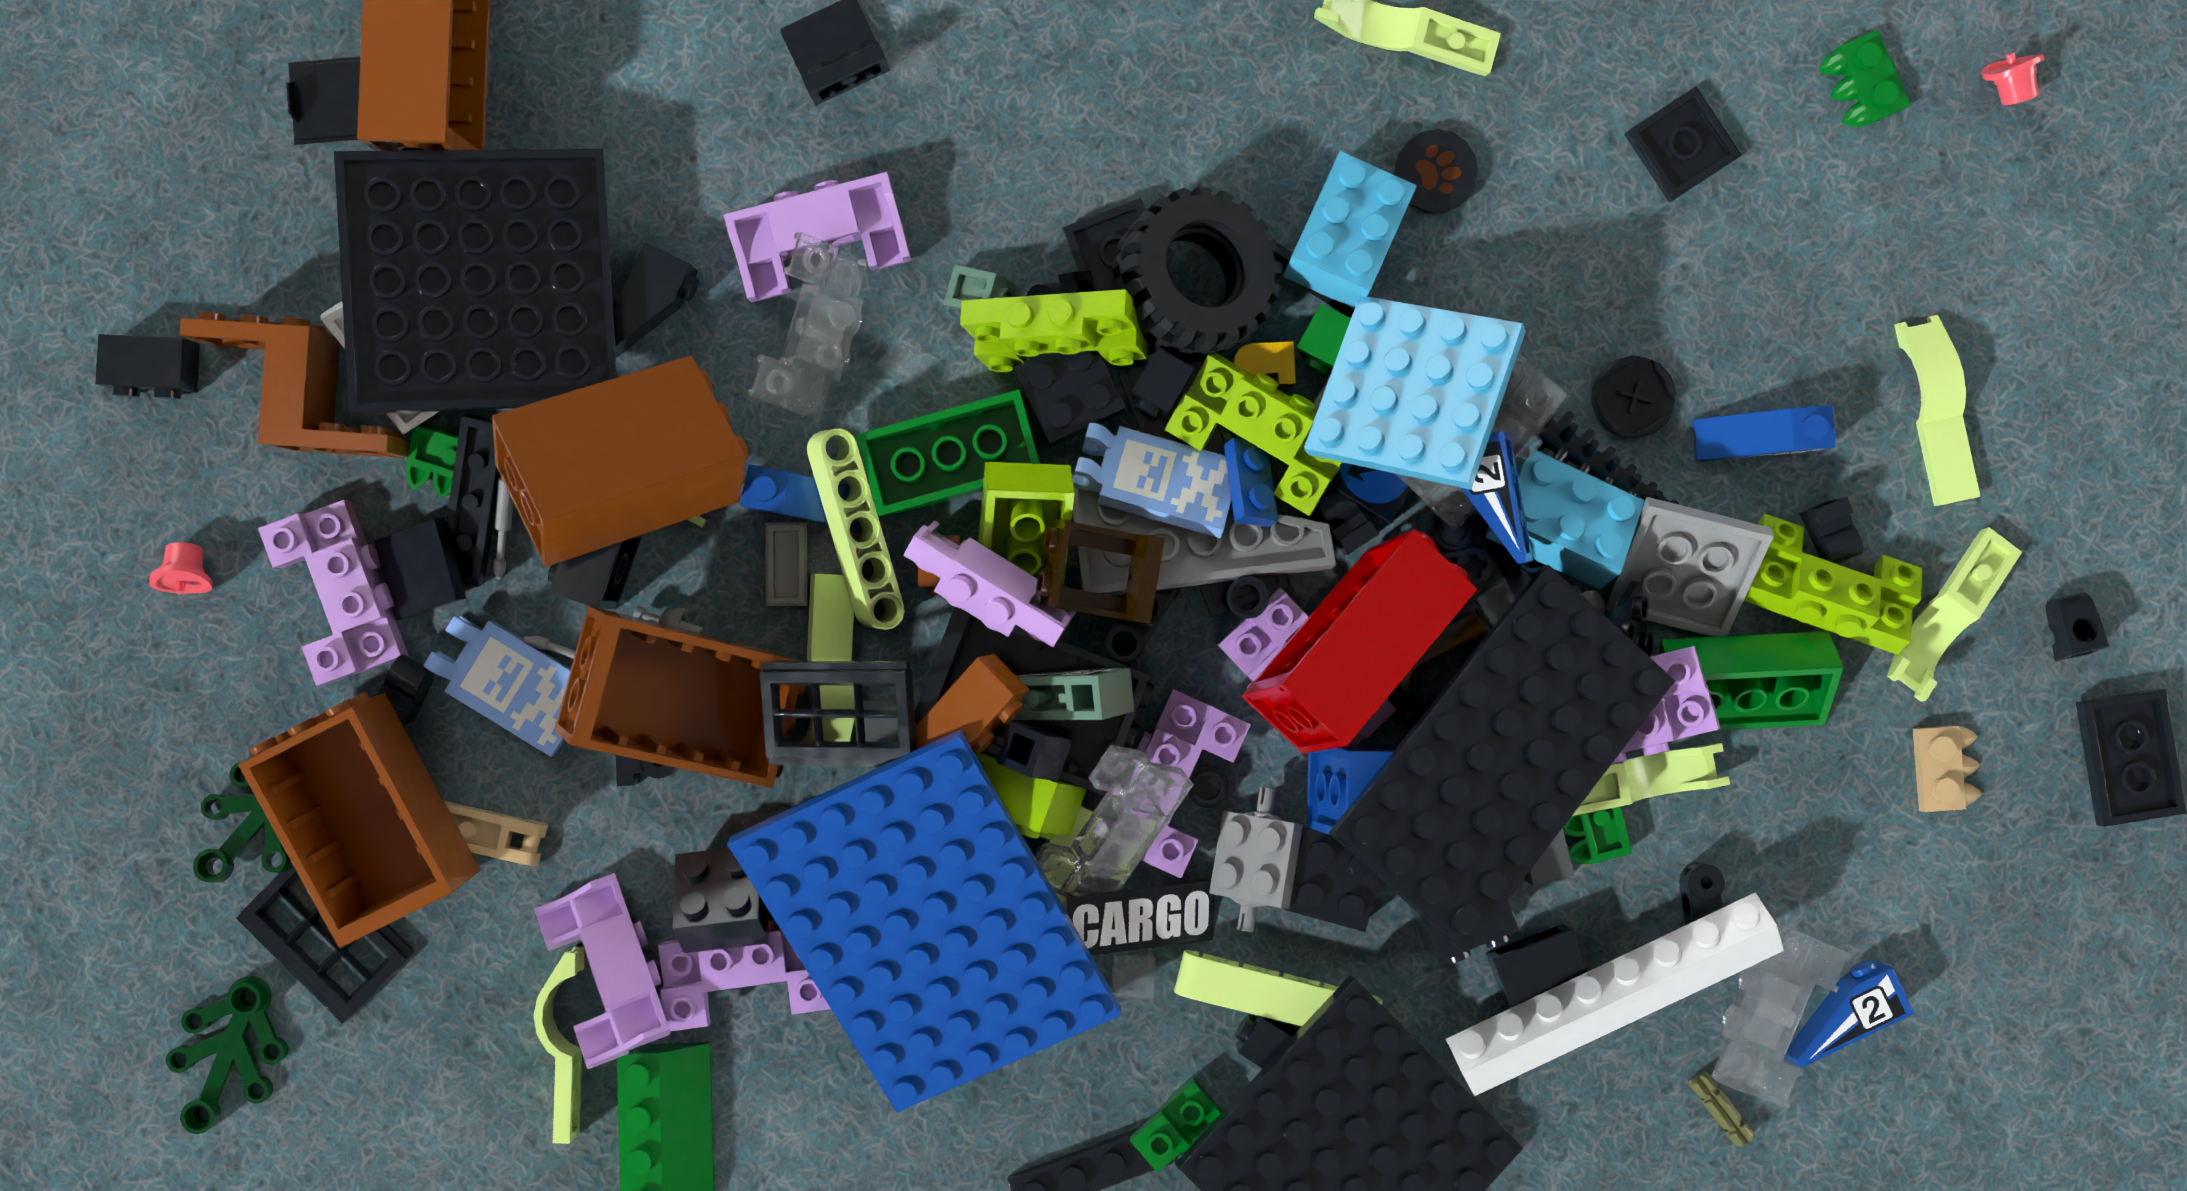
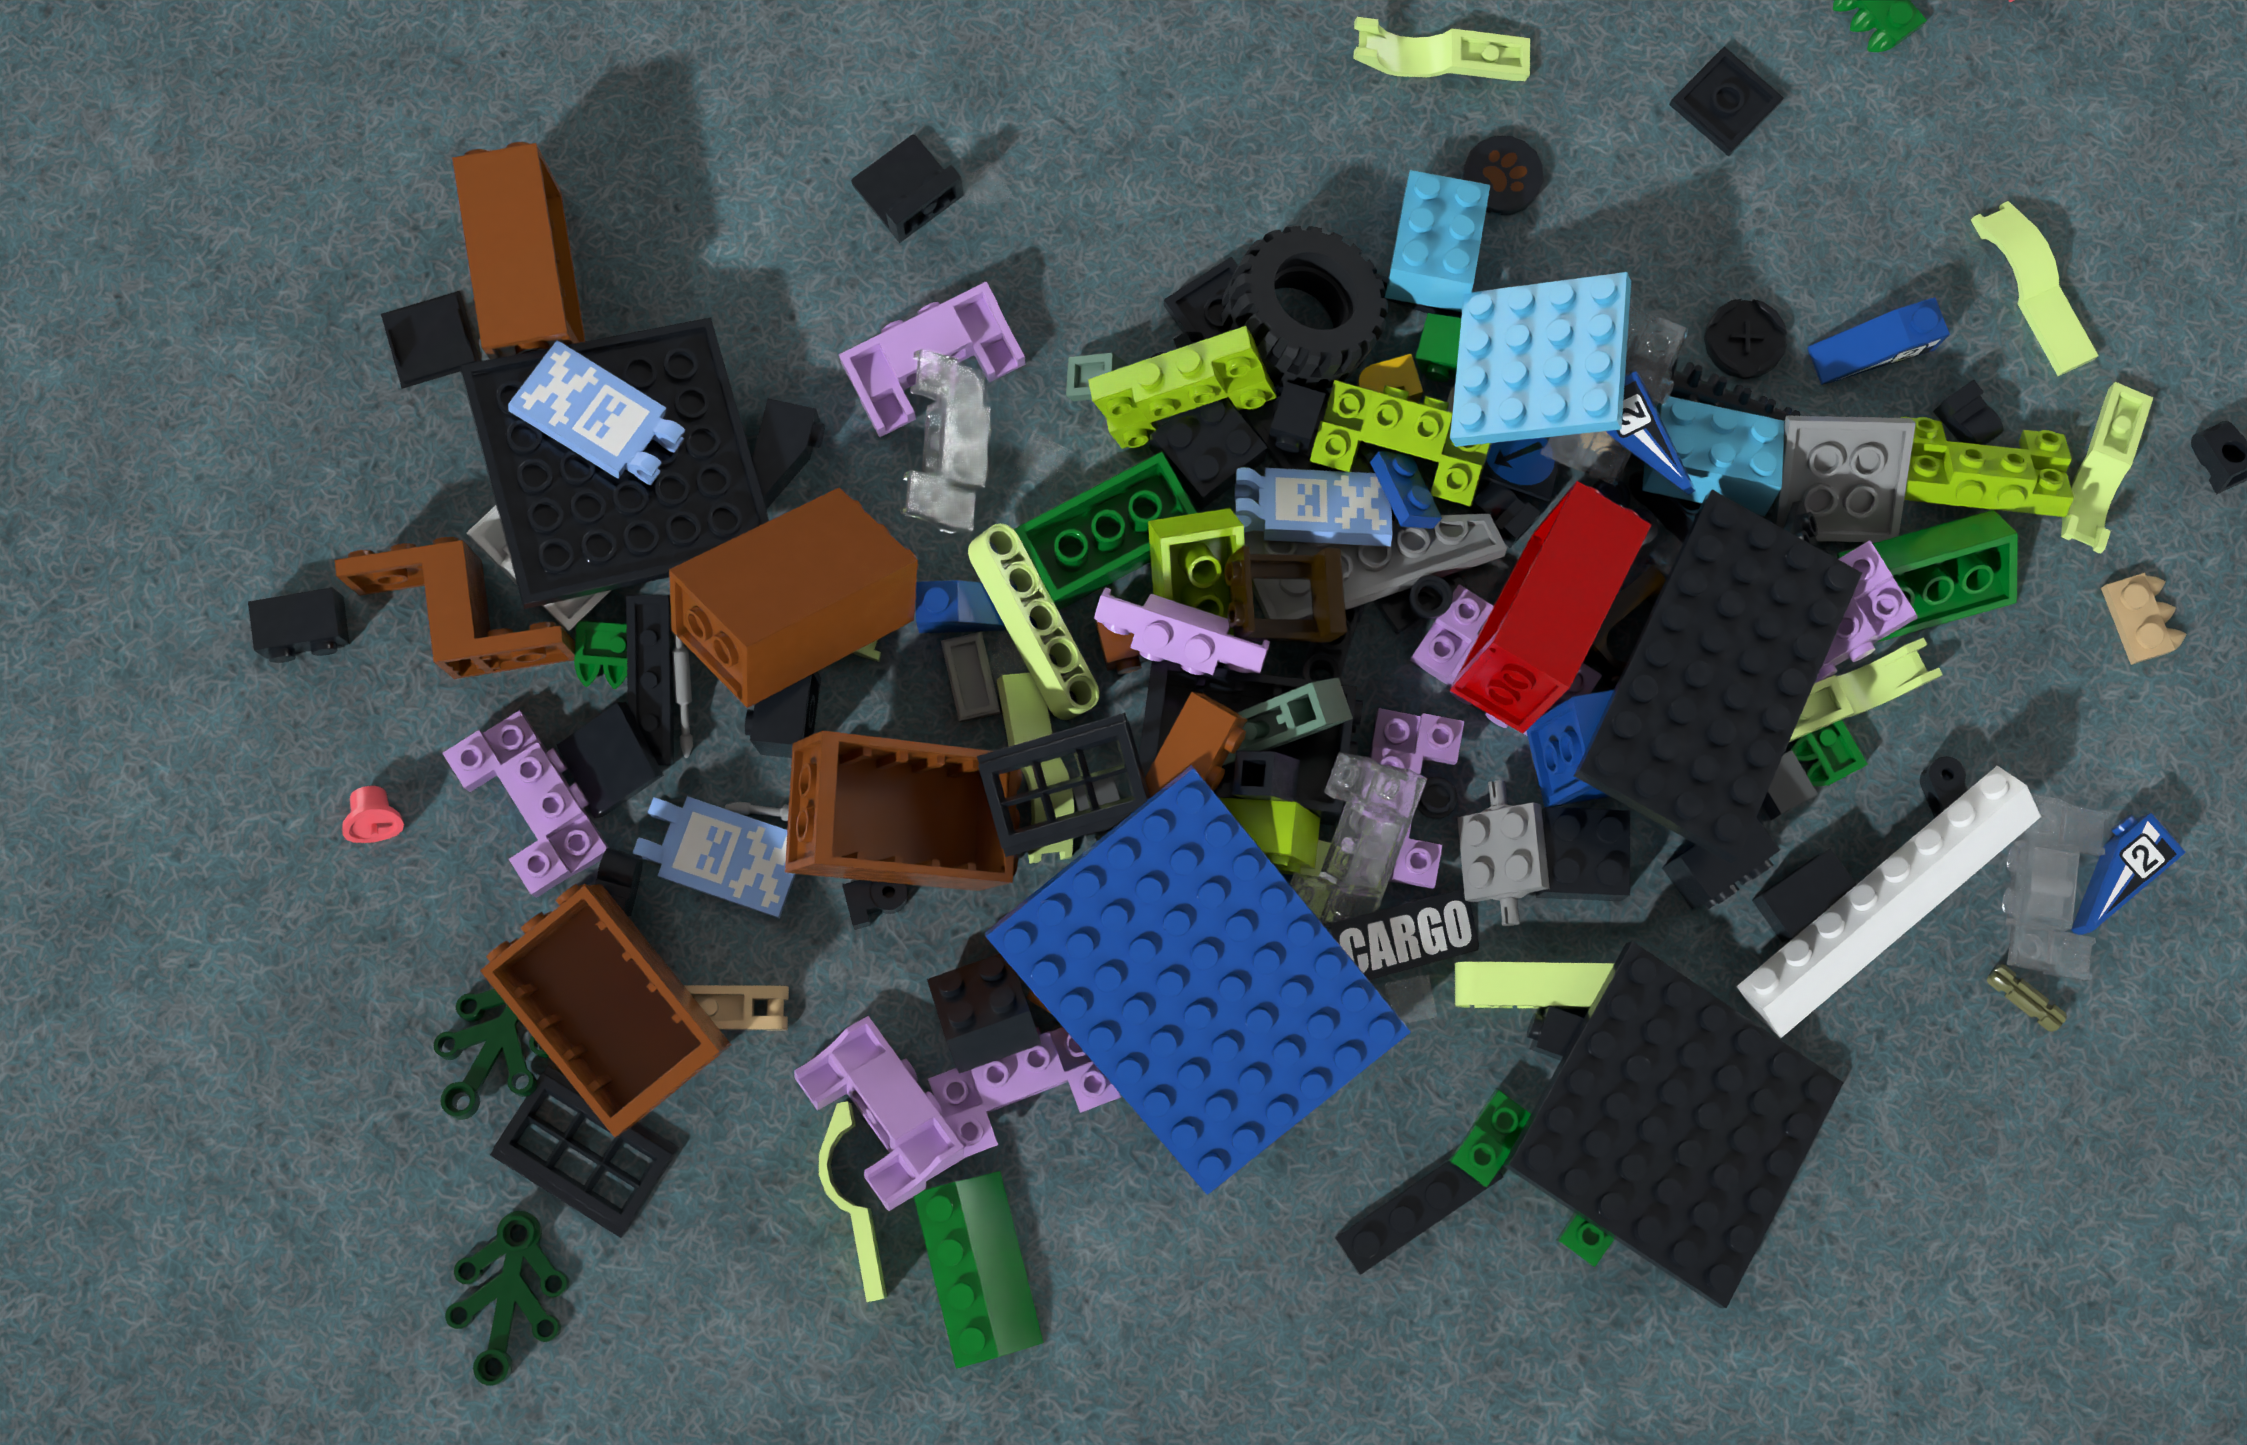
camera: 15 degrees left, 10 degrees down
(459, 228) = (595, 414): none -> light blue tile

